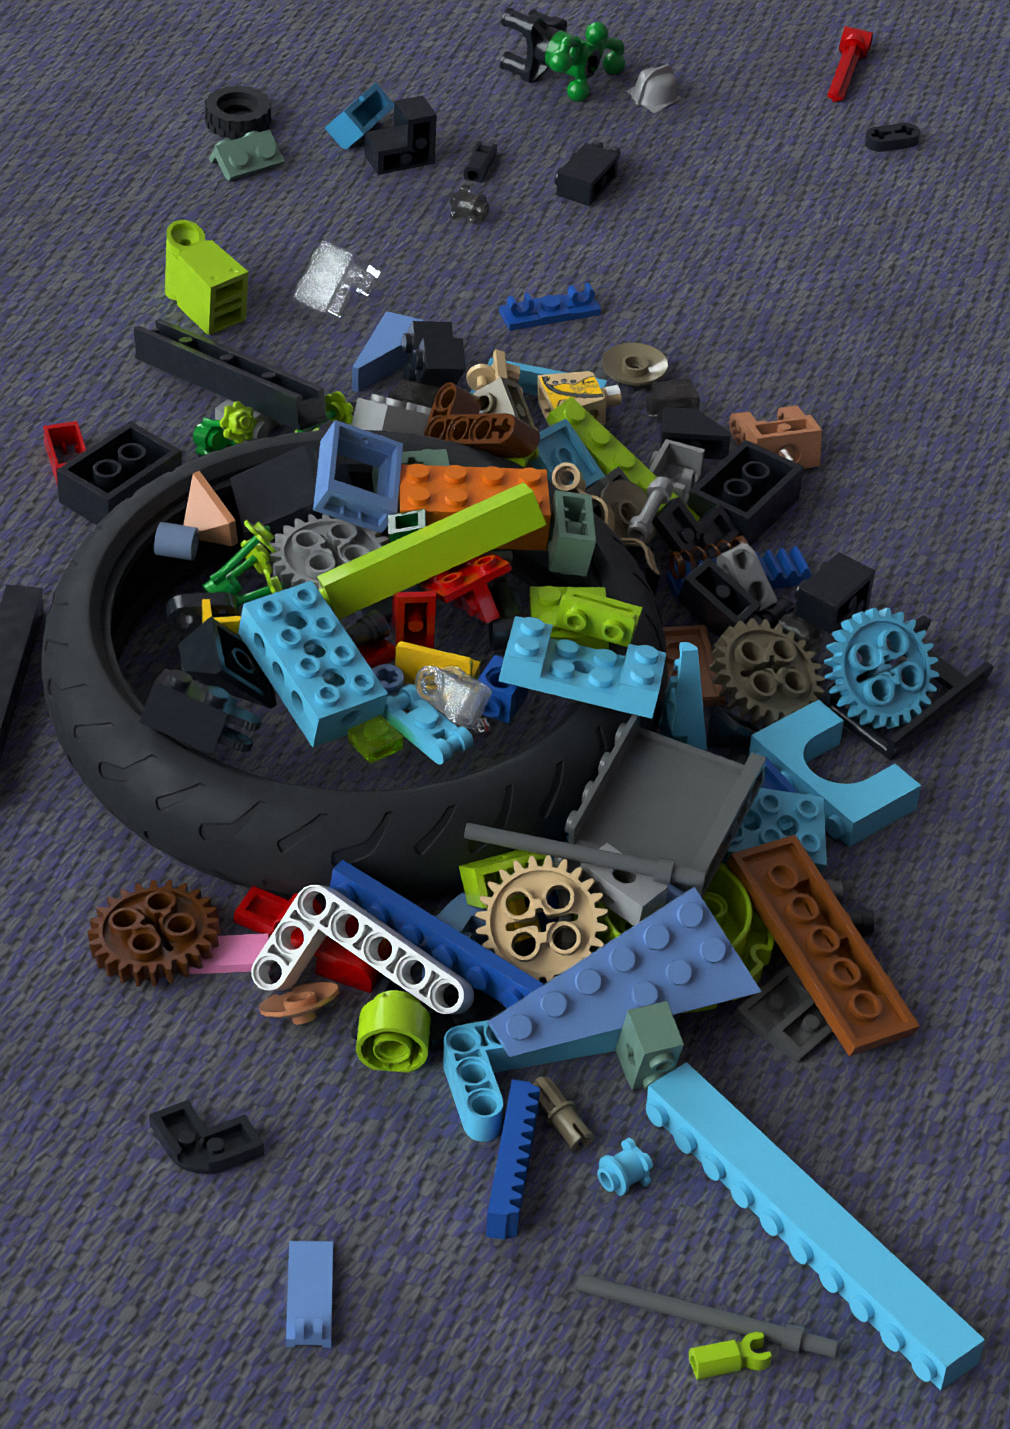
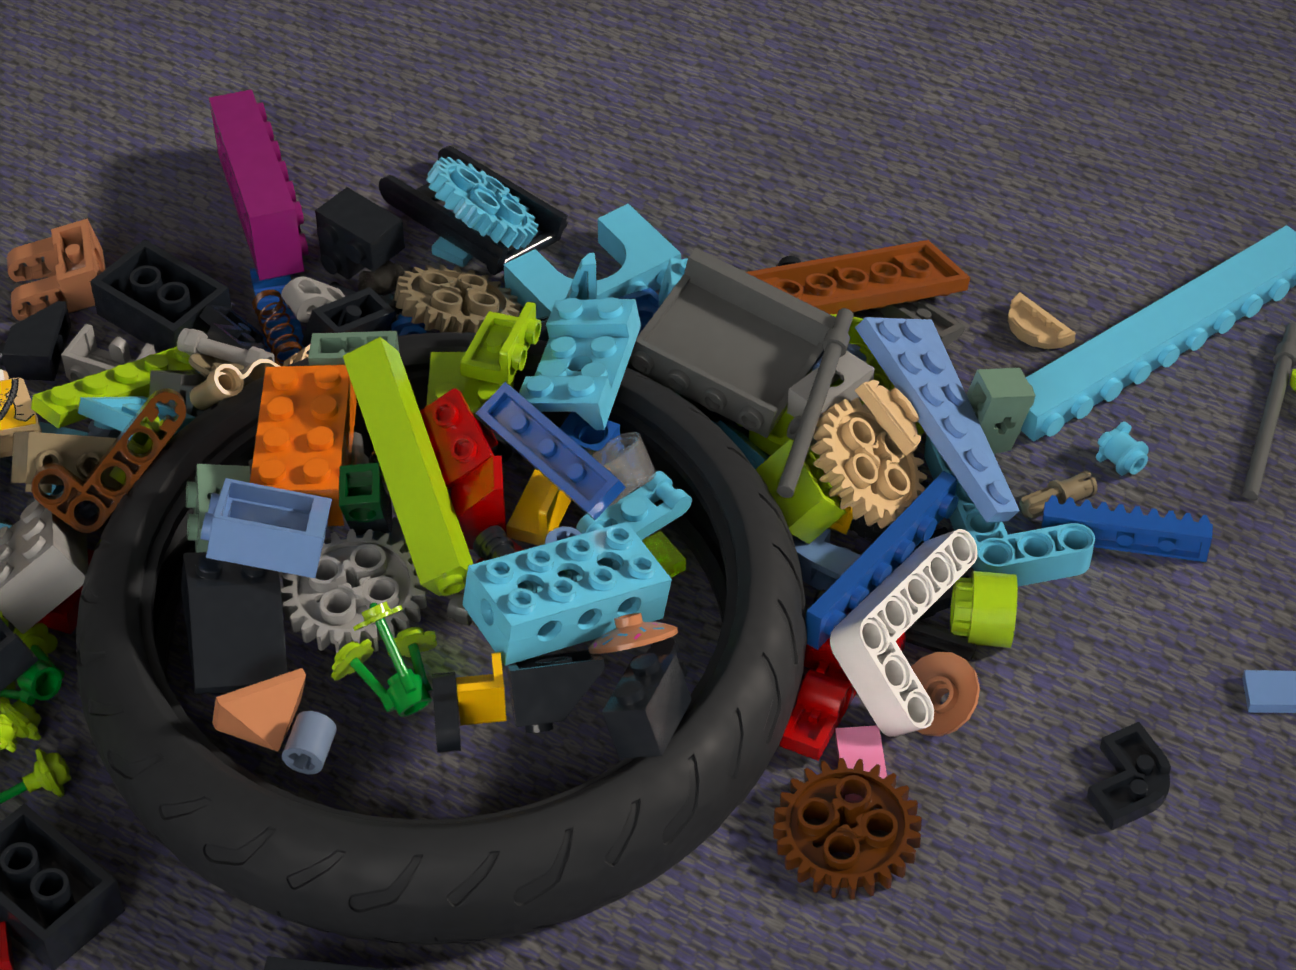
camera: 85 degrees left, 5 degrees up
(267, 707) = (631, 633): none -> nougat dish
(449, 632) = (550, 451): none -> blue gear
(590, 926) = (892, 413): none -> tan plate
(810, 1114) = (1037, 326): none -> tan plate
(892, 526) = (259, 184): none -> magenta brick

